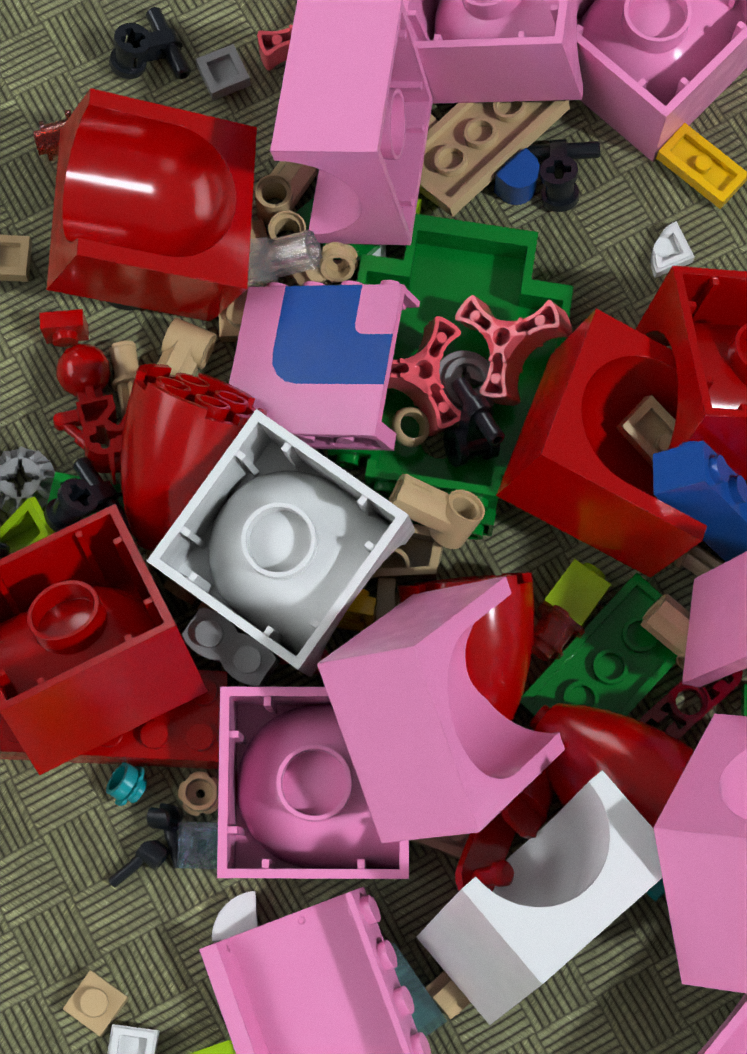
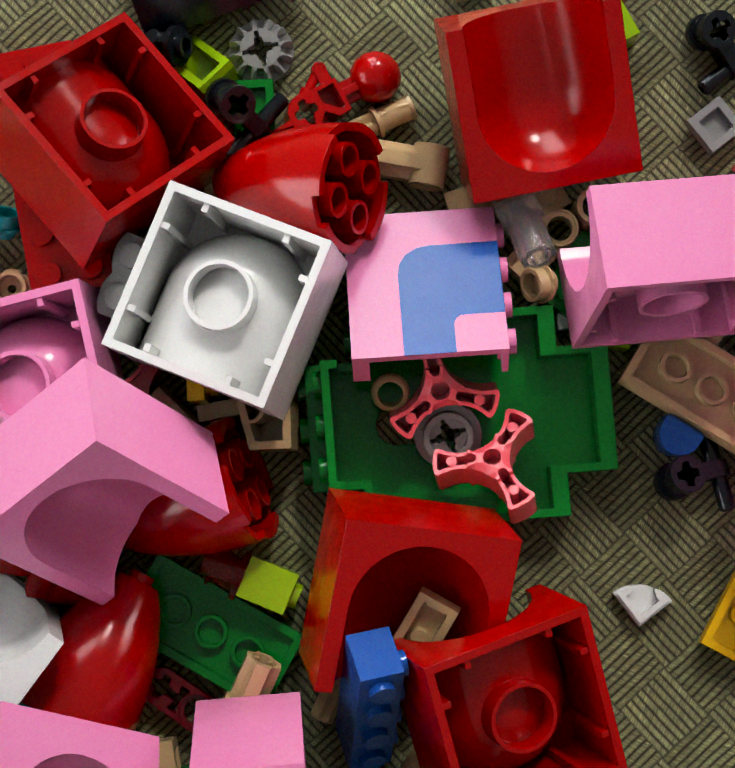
camera: 80 degrees right, 10 degrees up
(64, 327) = (413, 48): red plate -> none
(448, 516) = (300, 433): tan piece -> none
(477, 431) = (402, 455): black piece -> none

